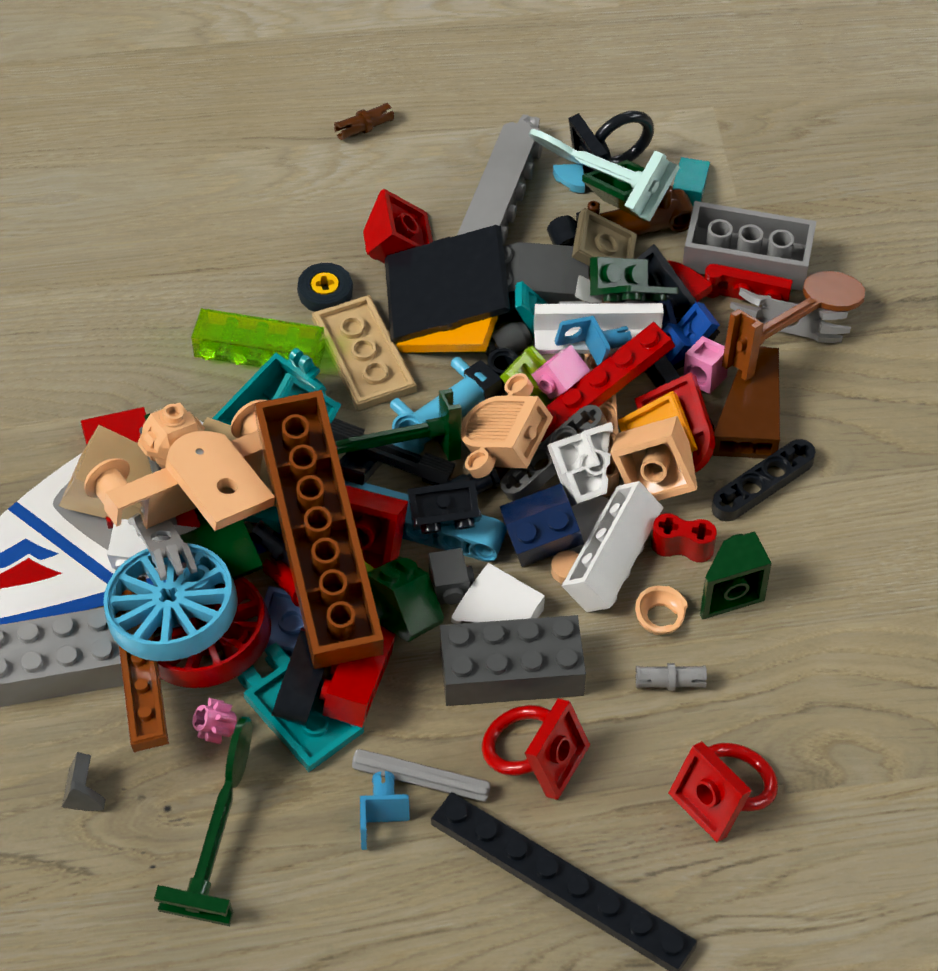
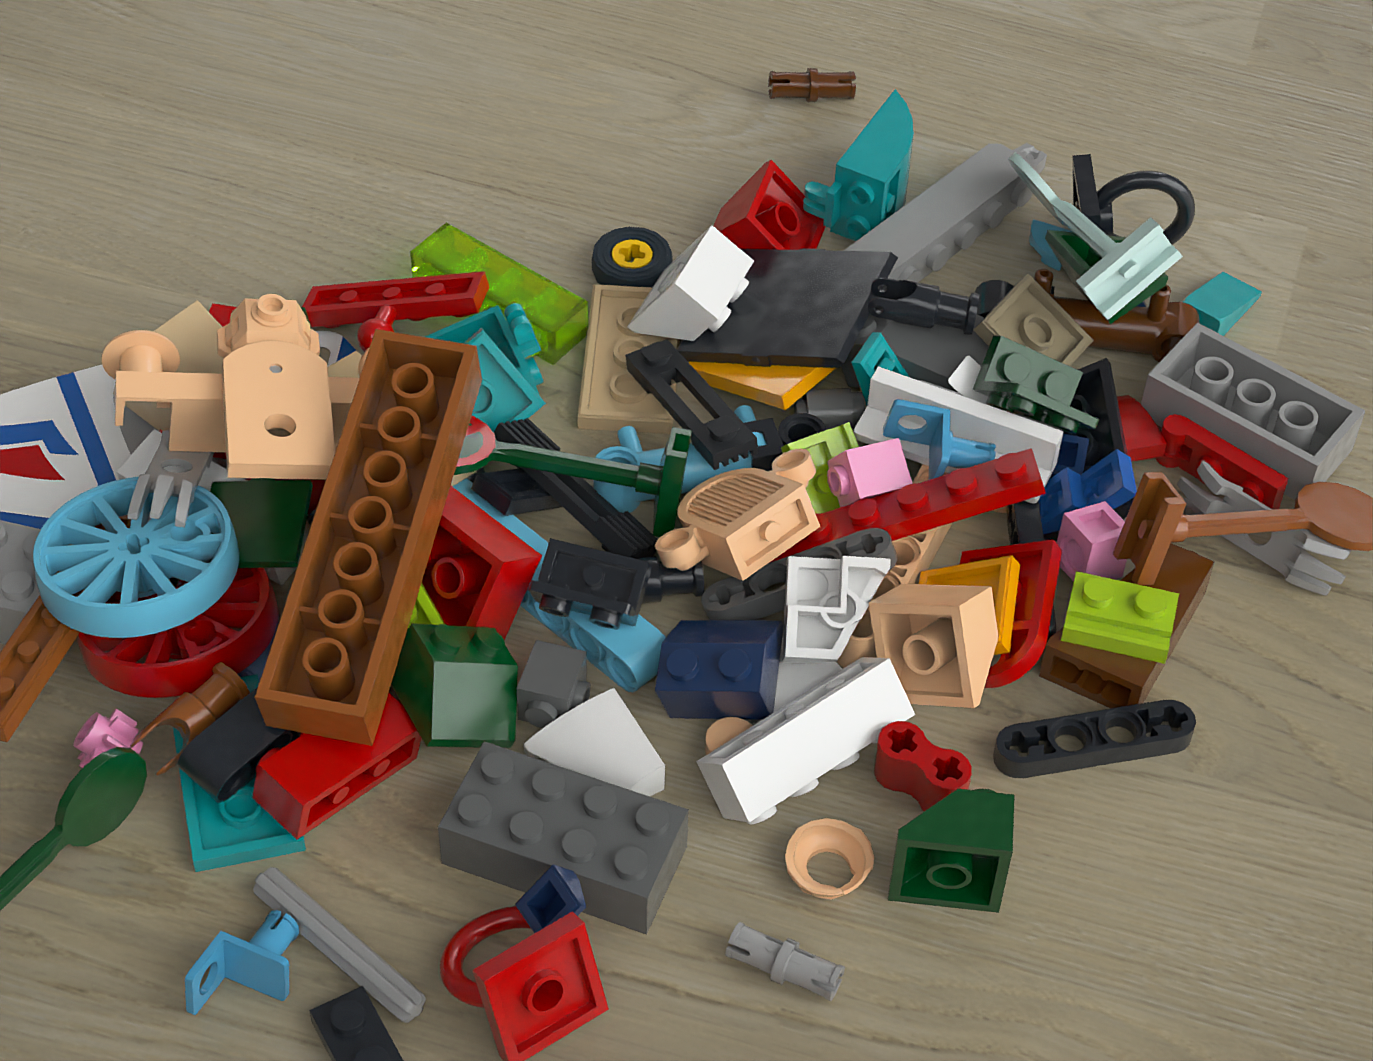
camera: 25 degrees right, 5 degrees down
(200, 376) = (384, 301): none -> red plate
(262, 680) = (200, 709): none -> dark orange piece
(384, 294) = (695, 289): none -> white slope
(389, 355) = (715, 440): none -> black container
(448, 175) = (869, 175): none -> teal piece
(538, 252) = (923, 305): none -> black piece
(538, 698) = (551, 898): none -> dark blue slope
(747, 403) = (1120, 617): none -> lime plate

